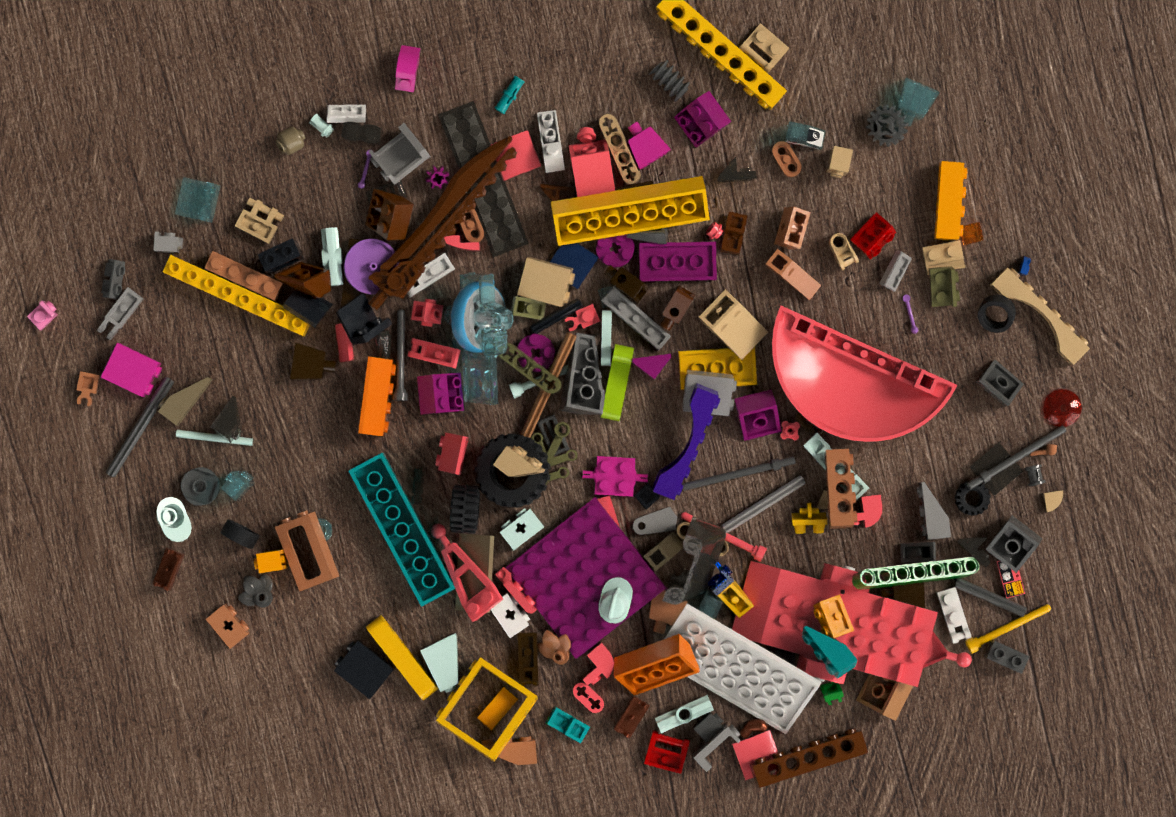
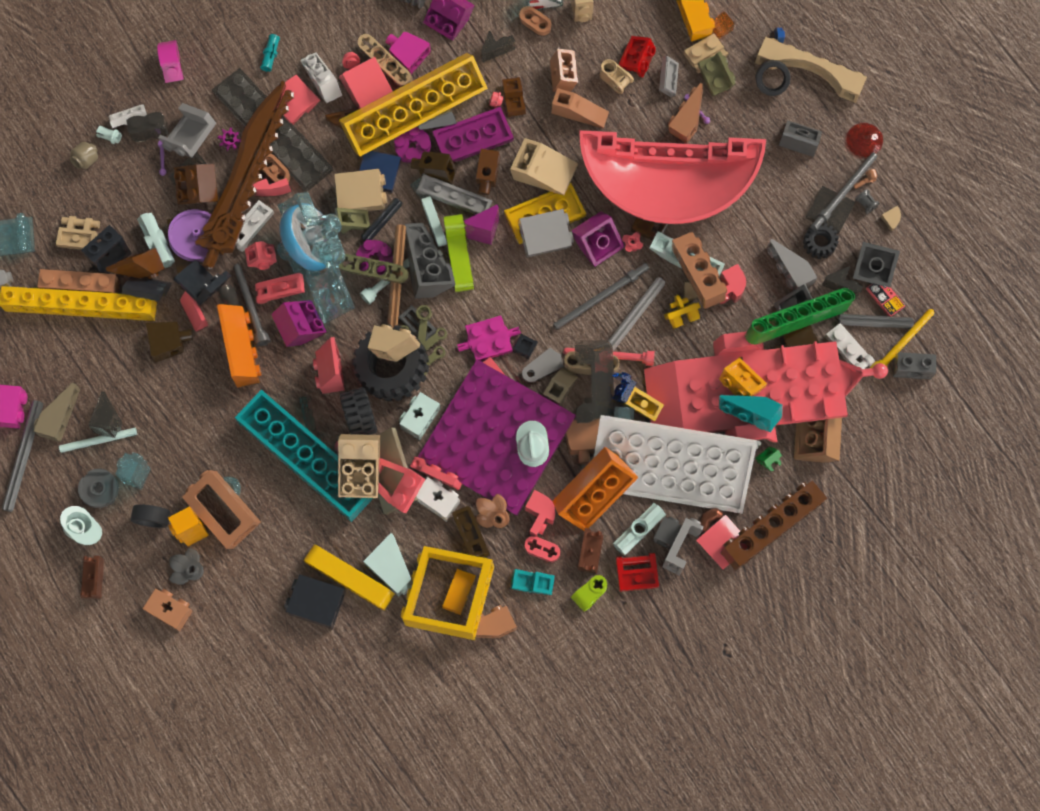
camera: 20 degrees left, 15 degrees down
(447, 563) = (358, 465): none -> tan slope
(586, 317) = (407, 212): coral plate -> none
(612, 756) = (587, 594): none -> lime piece
(671, 476) = (543, 241): dark purple arch -> none
(893, 326) = (686, 121): none -> nougat slope

